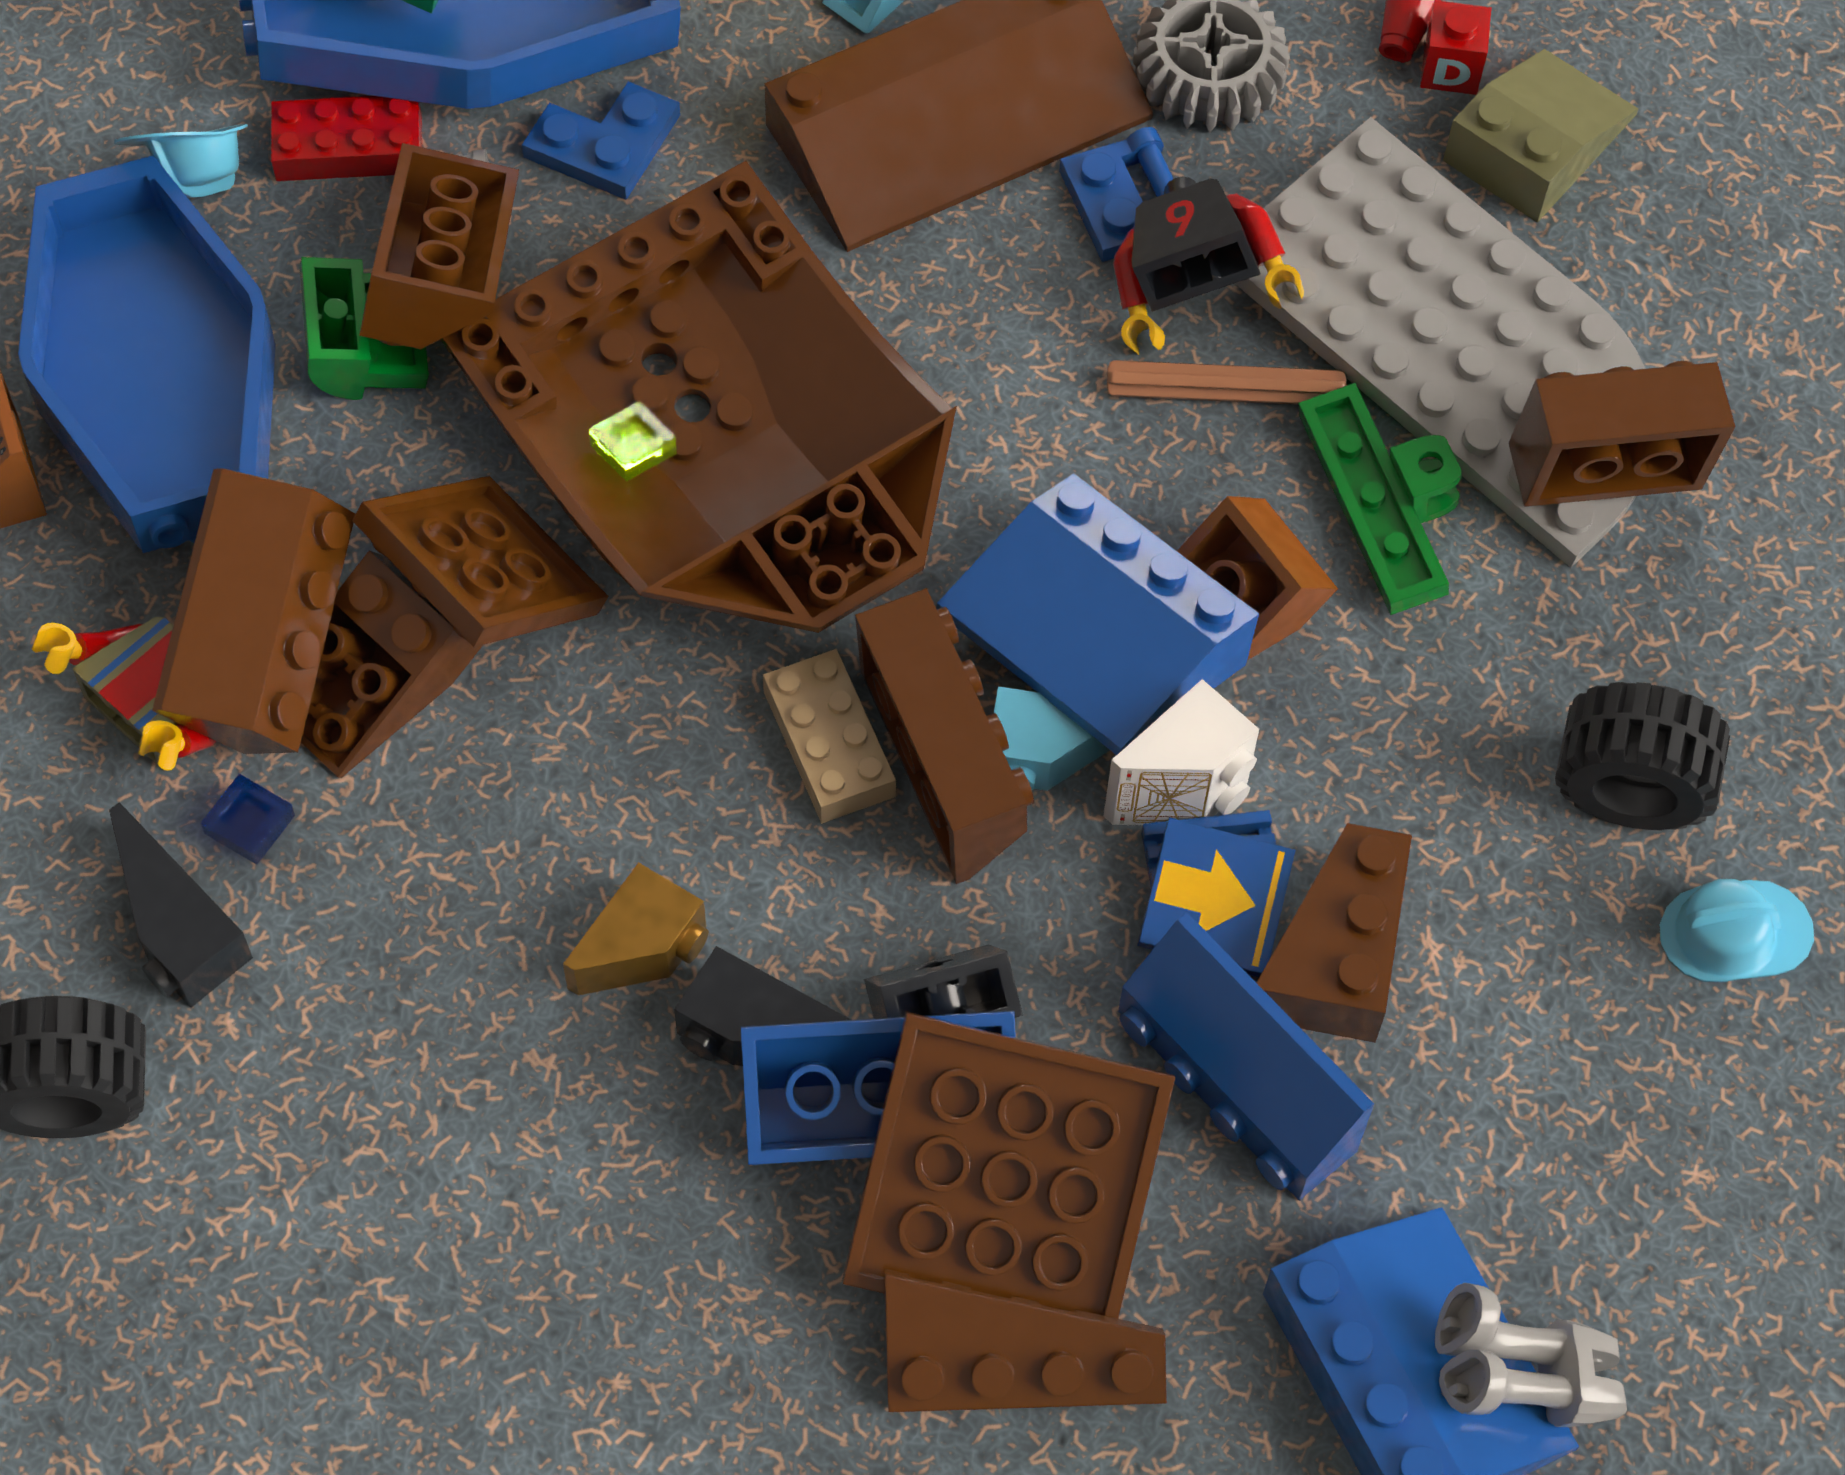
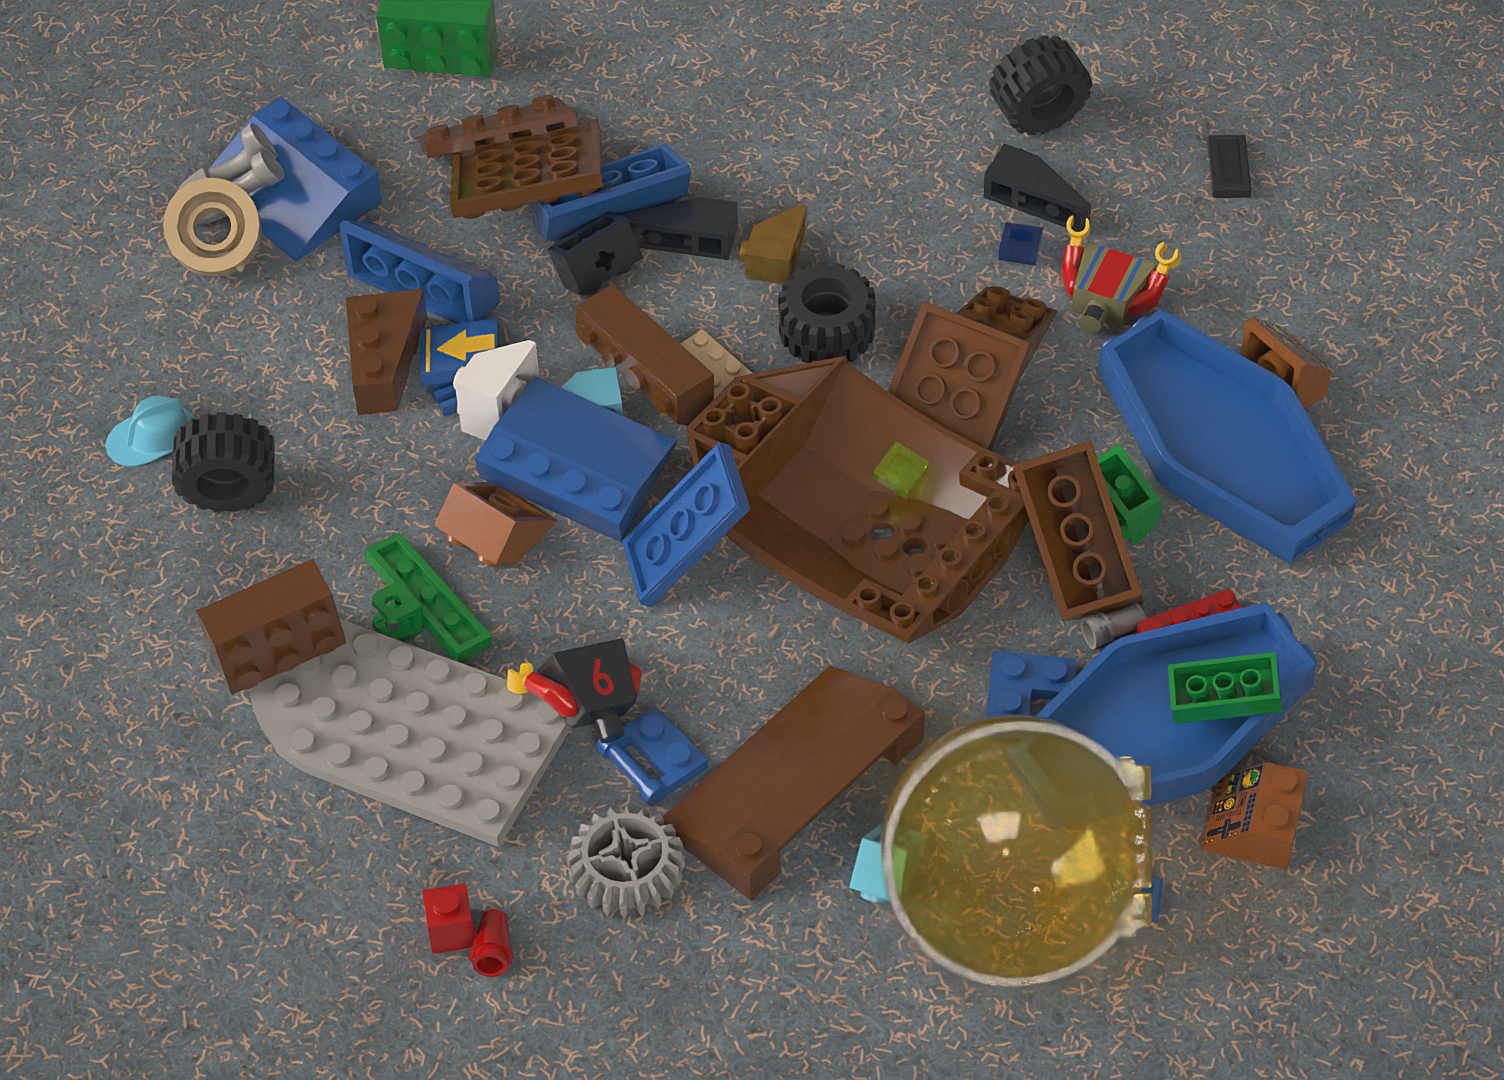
camera: 165 degrees right, 10 degrees down
(195, 160) = (1288, 566): medium azure piece -> none
(254, 613) = (1064, 297): reddish brown slope -> none
(617, 718) = (832, 291): none -> black tyre
(980, 402) = (685, 524): none -> blue tile
(1219, 382) = (543, 646): nougat axle -> none
(1535, 132) = (372, 884): olive slope -> none
(1584, 1244) = (193, 203): none -> tan piece

